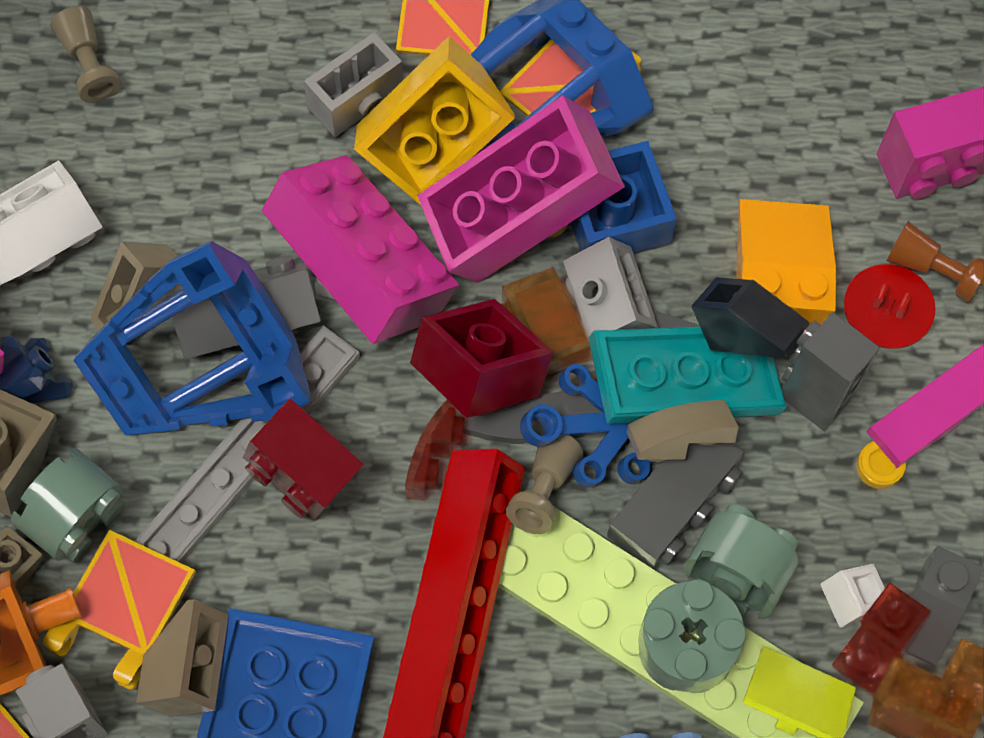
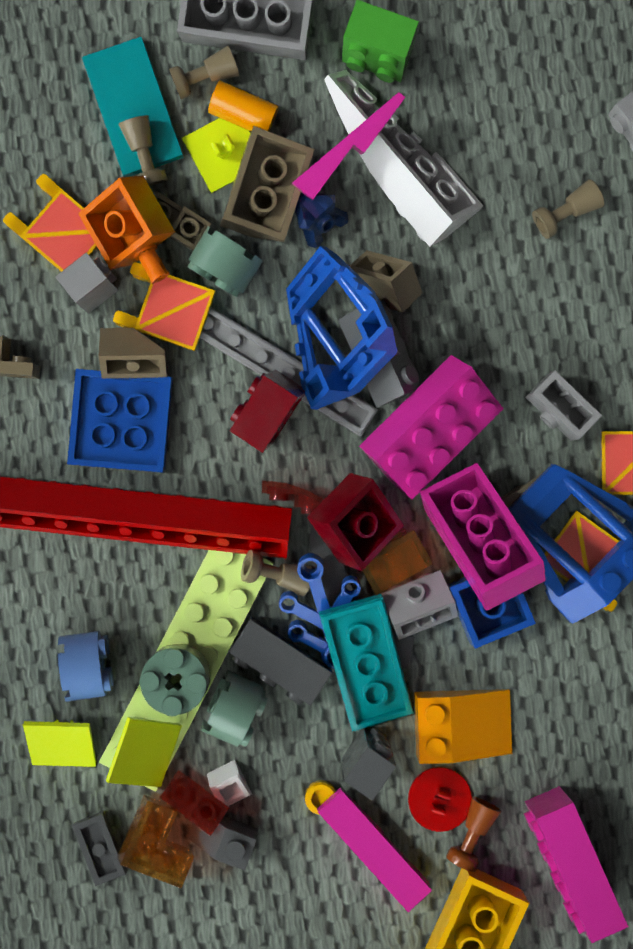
camera: 85 degrees right, 20 degrees up
(433, 120) = (535, 467): yellow slope -> none
(669, 431) = (319, 665): dark tan slope -> none
(747, 319) = (400, 705): black slope -> none

